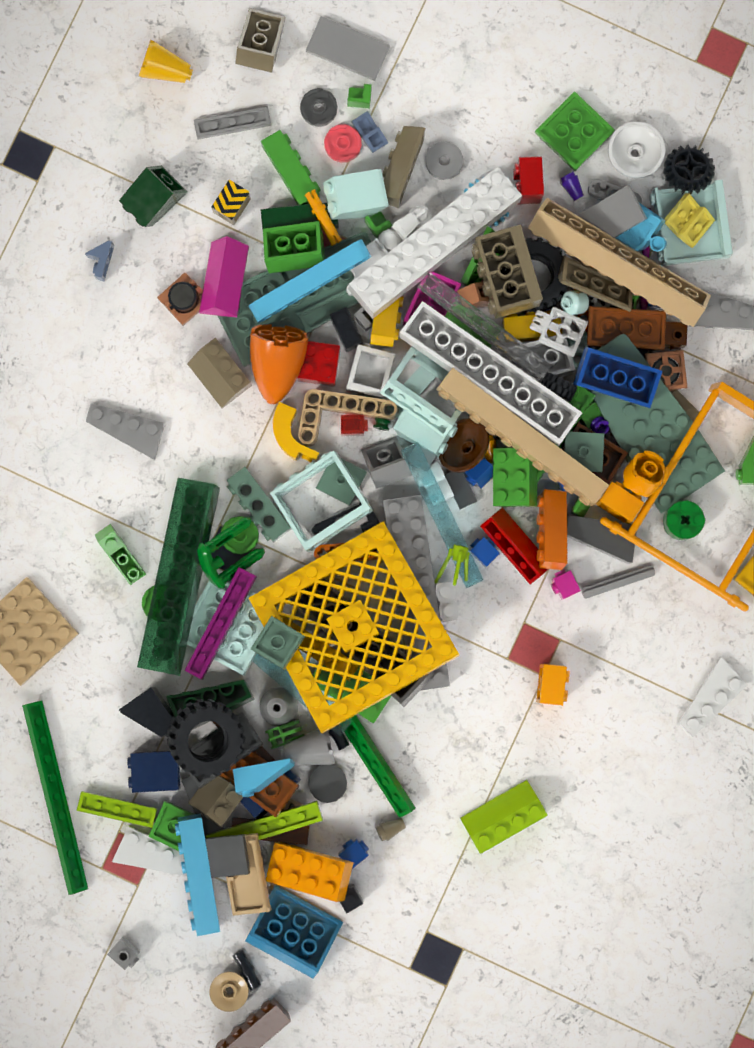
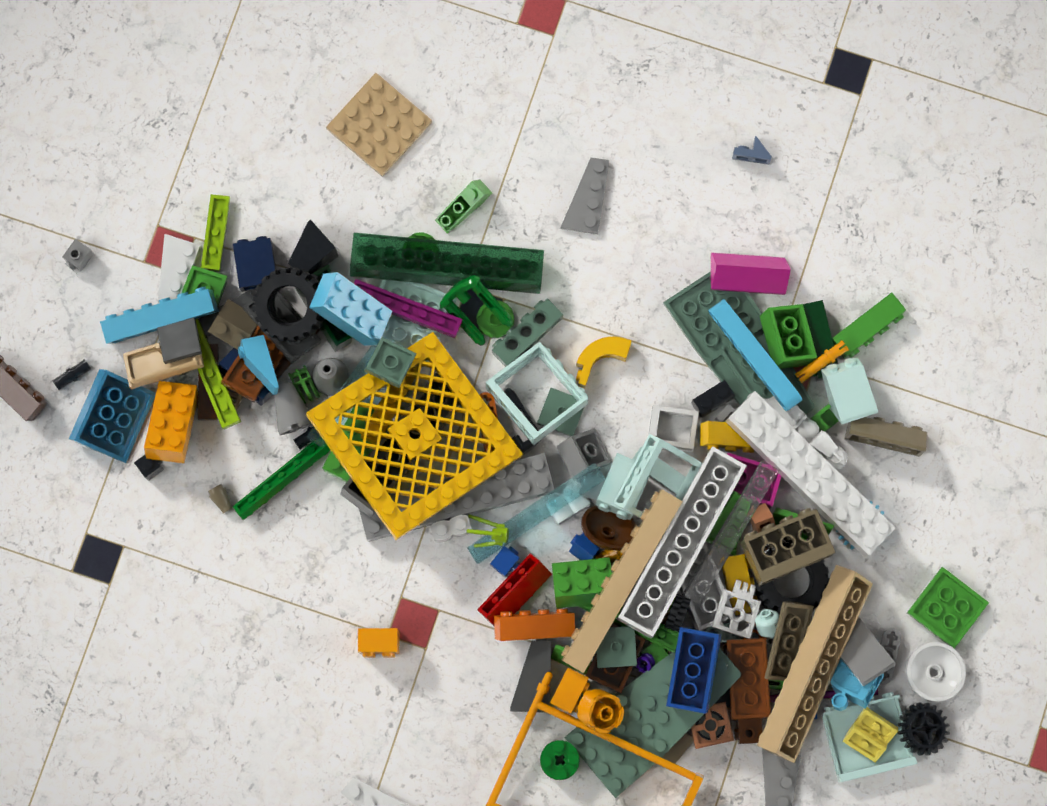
camera: 90 degrees right, 5 degrees down
(55, 797) = (221, 172): green plate -> none
(152, 195) = (823, 194): dark green slope -> none
(164, 65) = (956, 189): yellow cone -> none
(183, 298) = (724, 235): piece -> none
(218, 677) = (350, 309): none -> medium azure brick
(219, 373) = (654, 280): dark tan slope -> none
(223, 1000) = (40, 357): tan dish -> none
(231, 202) = (826, 271): piece -> none
(232, 122) = (908, 264): light grey tile -> none
(260, 40) = (996, 280): dark tan slope -> none
(276, 359) = (673, 332): orange cylinder -> none
(318, 118) = (939, 336): dark grey tile -> none
(320, 364) = (675, 375): red brick -> none
(327, 783) = (259, 432): dark grey tile -> none
(340, 407) = (634, 402): tan beam -> none
(342, 143) = (902, 375): coral tile -> none
(347, 48) = (1001, 369): light grey tile -> none
(353, 425) = (617, 417): clear red brick -> none
(354, 851) = (195, 465): blue brick -> none
(360, 97) = (952, 386): bright green panel -> none
(369, 132) = (918, 400): sand blue slope -> none
(381, 424) = (622, 445): dark green bush -> none
(448, 150) = (899, 467): light grey tile -> none
(461, 489) = (565, 531): dark grey tile -> none
(503, 816) = (243, 608): lime slope -> none
(529, 179) = (889, 564): red brick -> none
(564, 584) = (481, 645): dark pink brick -> none
(572, 185) = (890, 611): dark purple cone -> none
(618, 581) = (490, 700): light grey axle -> none

